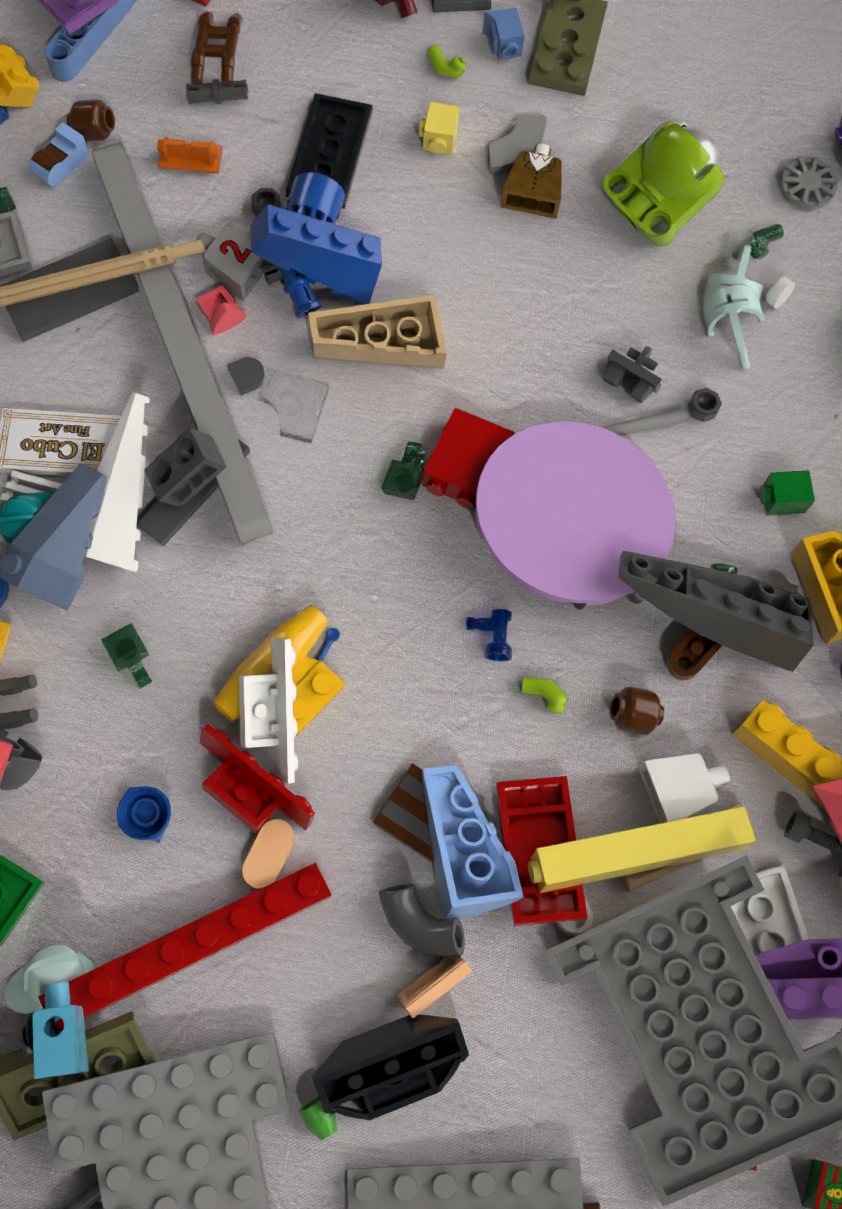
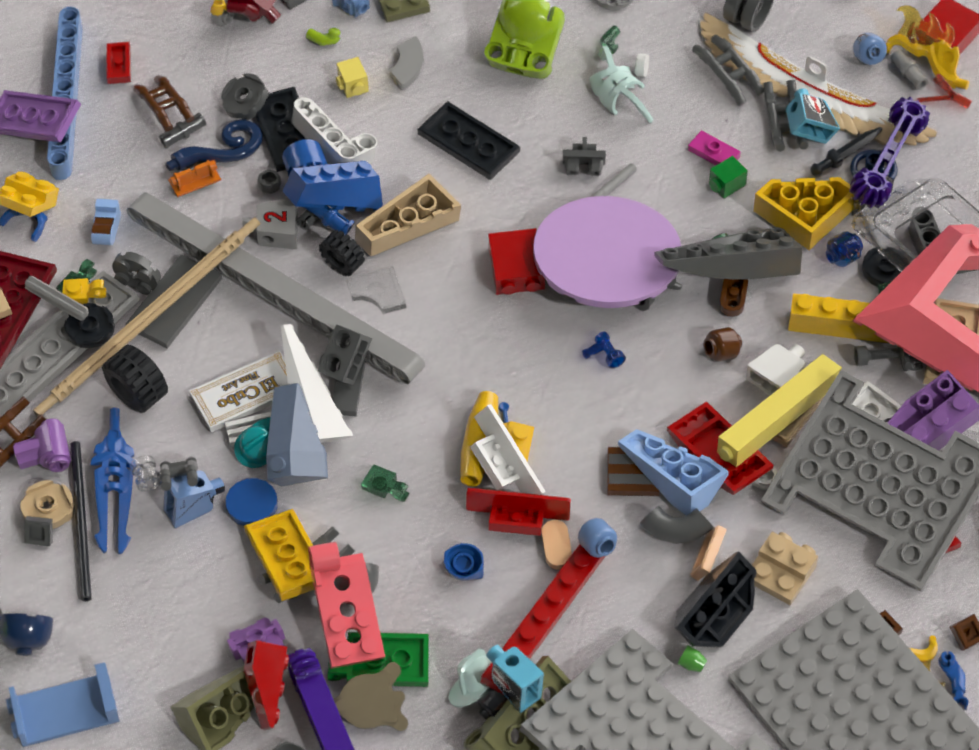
camera: 25 degrees left, 15 degrees down
(37, 228) = (136, 272): none -> dark grey plate
(91, 119) = (111, 187): reddish brown head -> none
(204, 126) = (191, 155): none -> dark blue plant
(220, 310) = (287, 260): coral tile -> none
(246, 374) = (334, 288): dark grey tile -> none
(276, 336) = (341, 253): none -> black tyre
(307, 100) = (251, 104): none -> dark grey plate
(307, 888) = (597, 538): none -> medium blue head
(363, 182) = (335, 144): none -> white beam
(405, 475) = (483, 291): clear green plate -> none
(512, 1060) = (783, 567): none -> tan plate
(520, 276) = (469, 140): none -> black tile
(534, 183) = (440, 79): pearl gold torso -> none
(548, 689) = (658, 363): lime arm -> none
(704, 404) = (641, 154): dark grey tile -> none
(794, 445) = (712, 148): none -> dark pink plate

